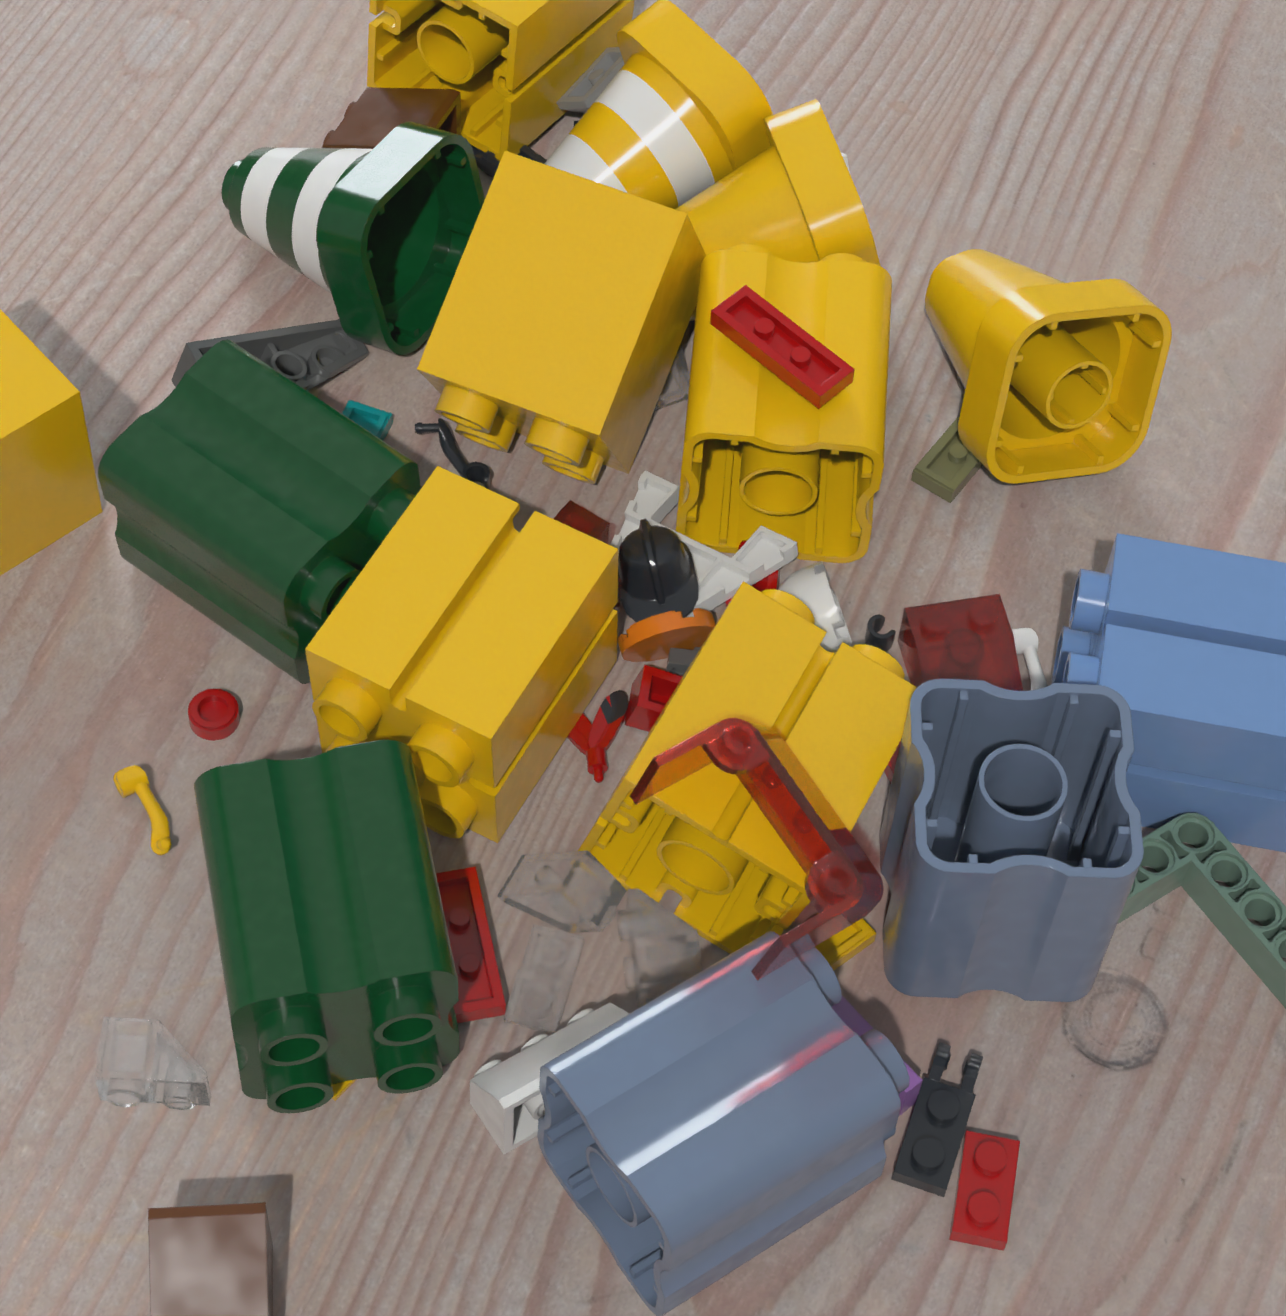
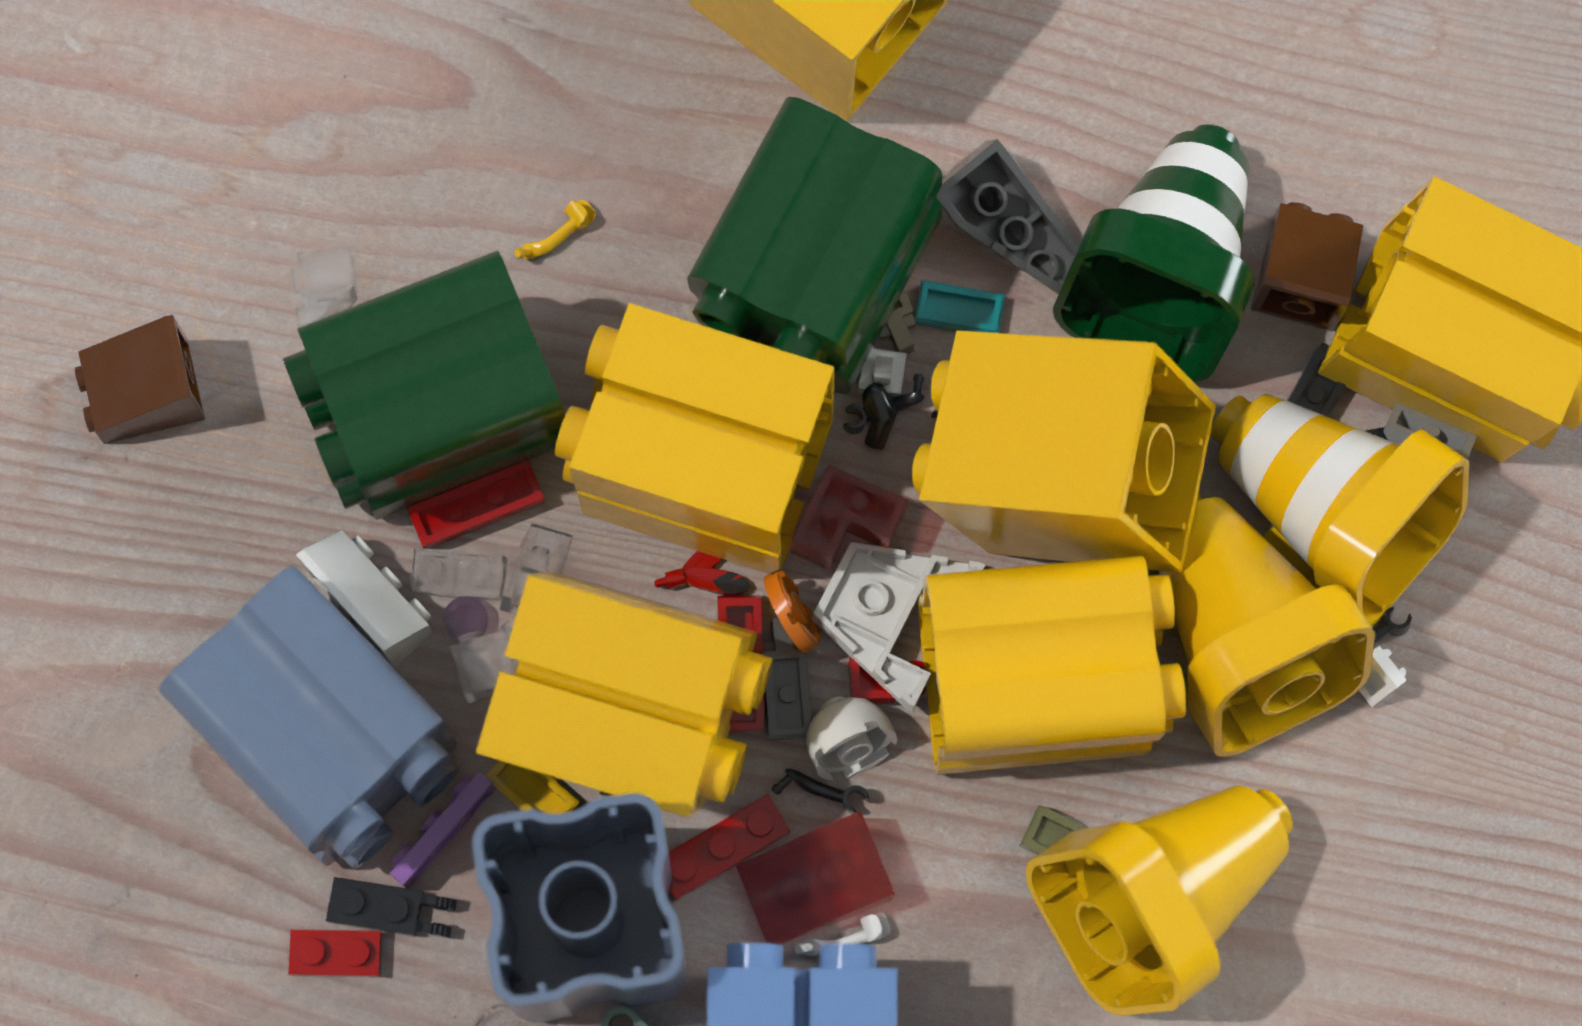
camera: 80 degrees right, 20 degrees up
(213, 714) = (658, 261): red tile -> none
(599, 982) = (465, 616): none -> clear purple tile
(656, 573) = (854, 592): black piece -> none
(782, 346) = (1029, 637): red plate -> none
(838, 872) = (556, 692): clear red windscreen -> none

